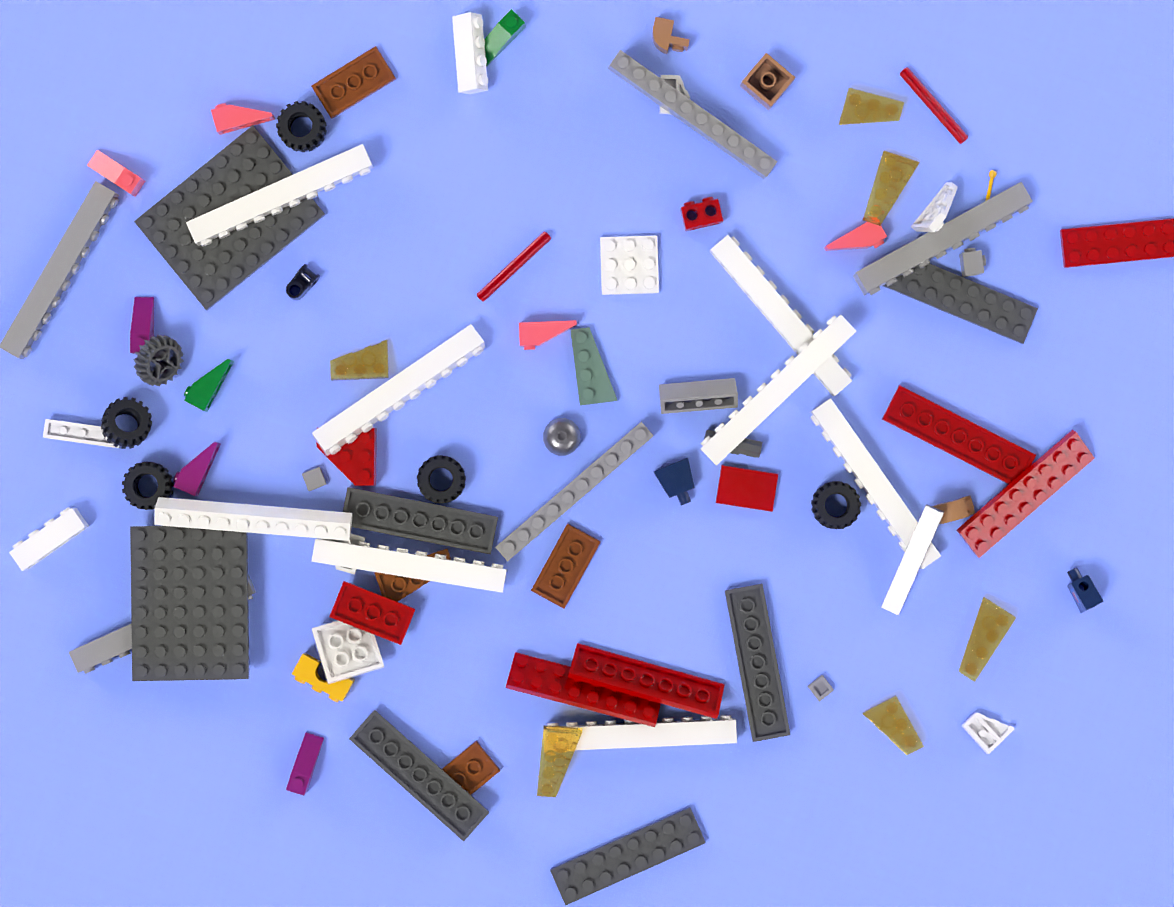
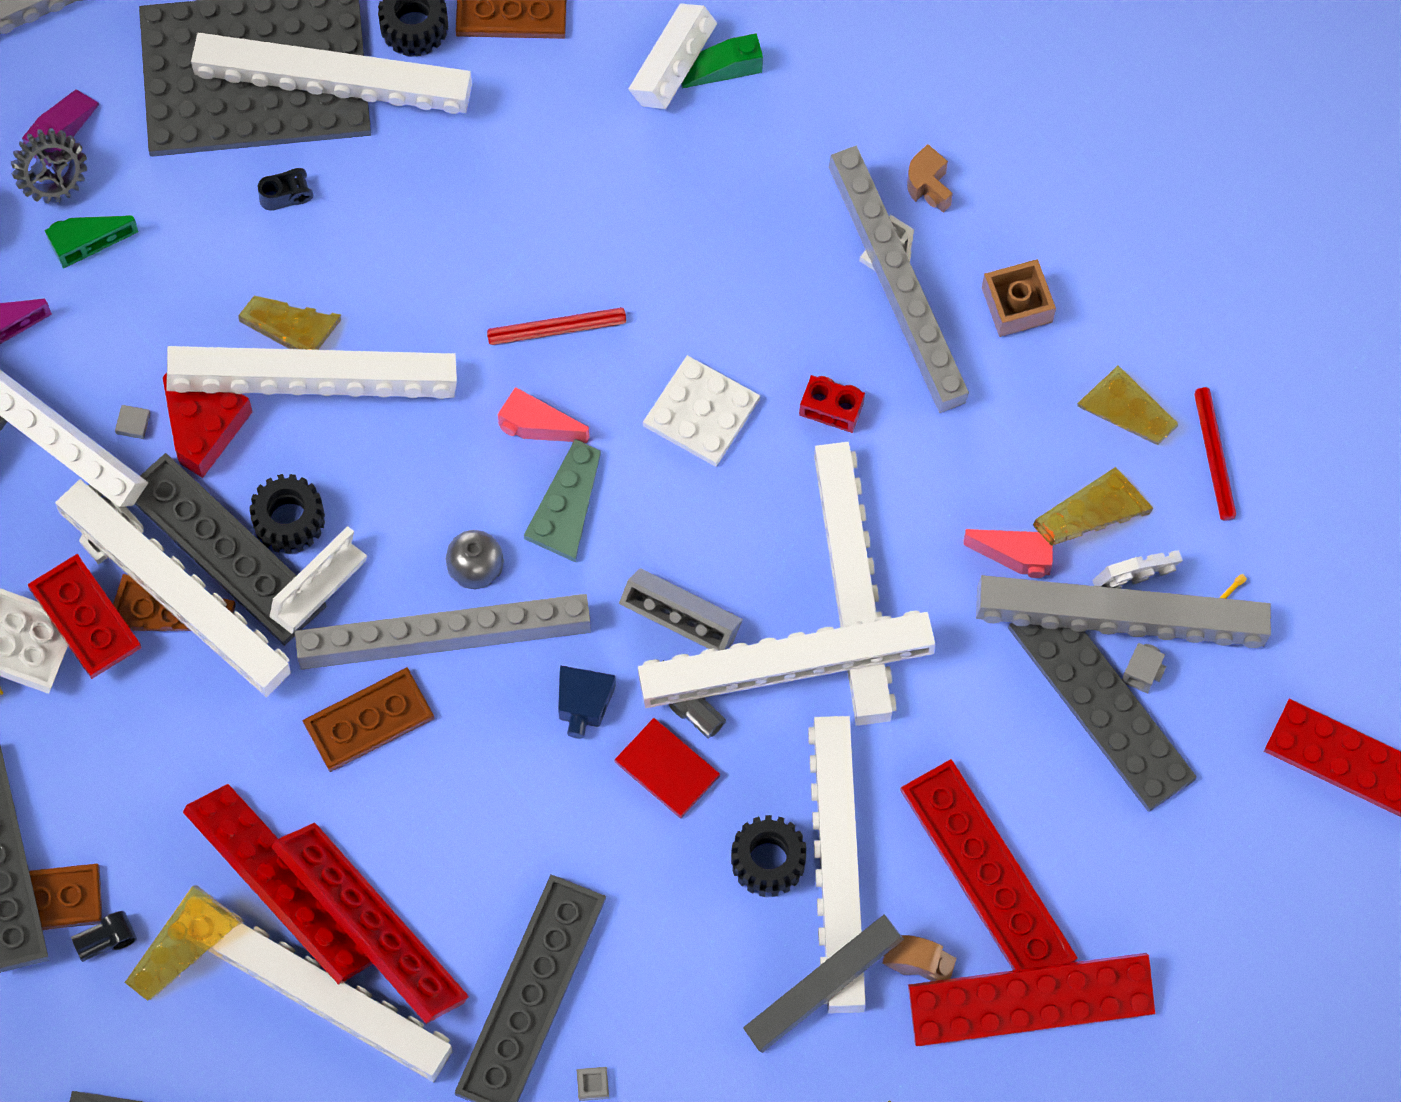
camera: 30 degrees right, 20 degrees down
(488, 509) = (317, 582): none -> white fence
(510, 776) = (112, 933): none -> black piece

